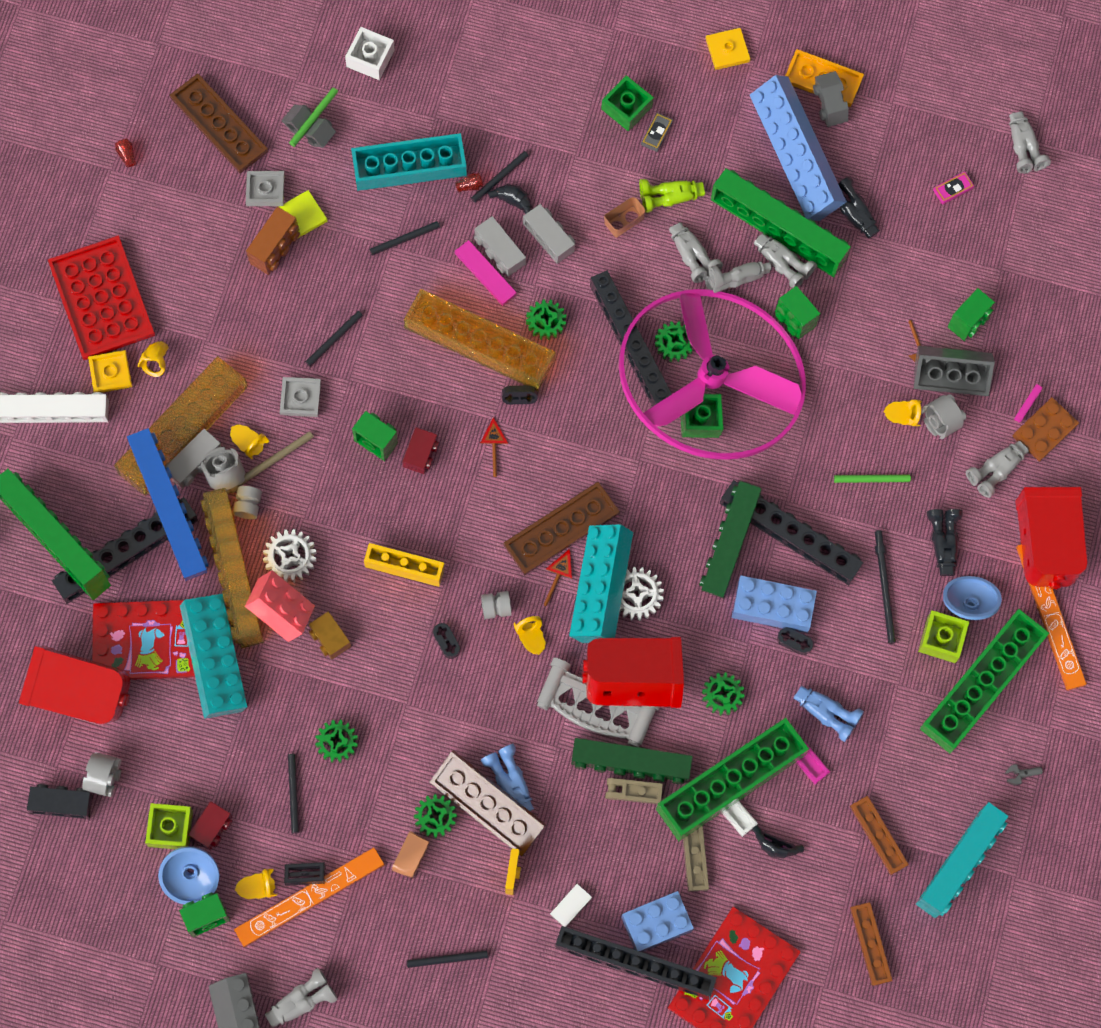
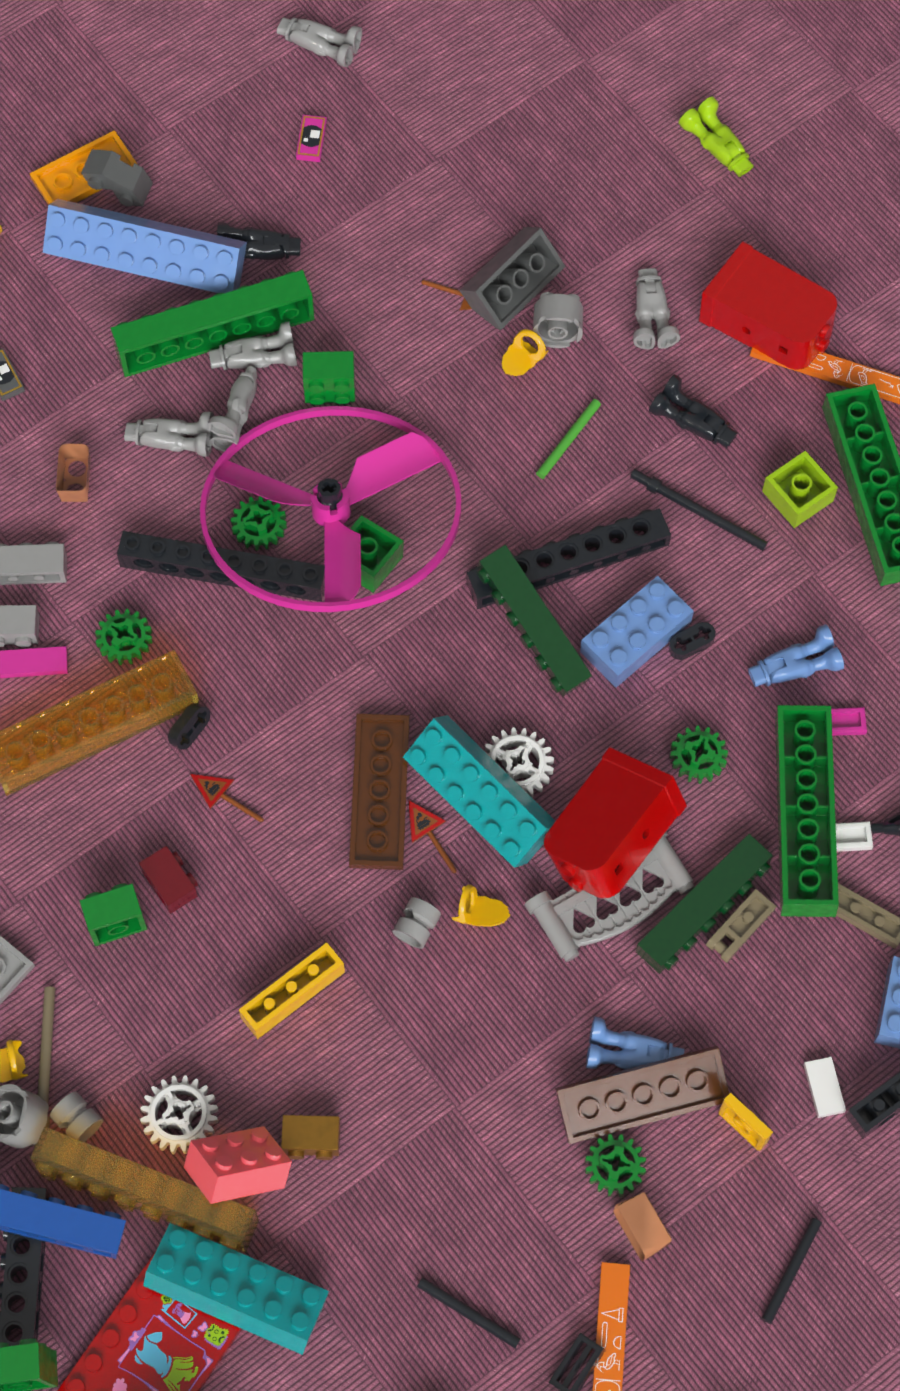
camera: 50 degrees left, 5 degrees down
(329, 738) = (434, 1225): green gear -> none
(450, 638) = (415, 1002): black beam -> none
(672, 192) = (87, 406): lime piece -> none
(971, 315) = (468, 215): green brick -> none
(972, 598) = (778, 431): medium blue dish -> none
(1028, 403) = (605, 233): dark pink tile -> none
(1045, 429) = (644, 238): dark orange plate -> none

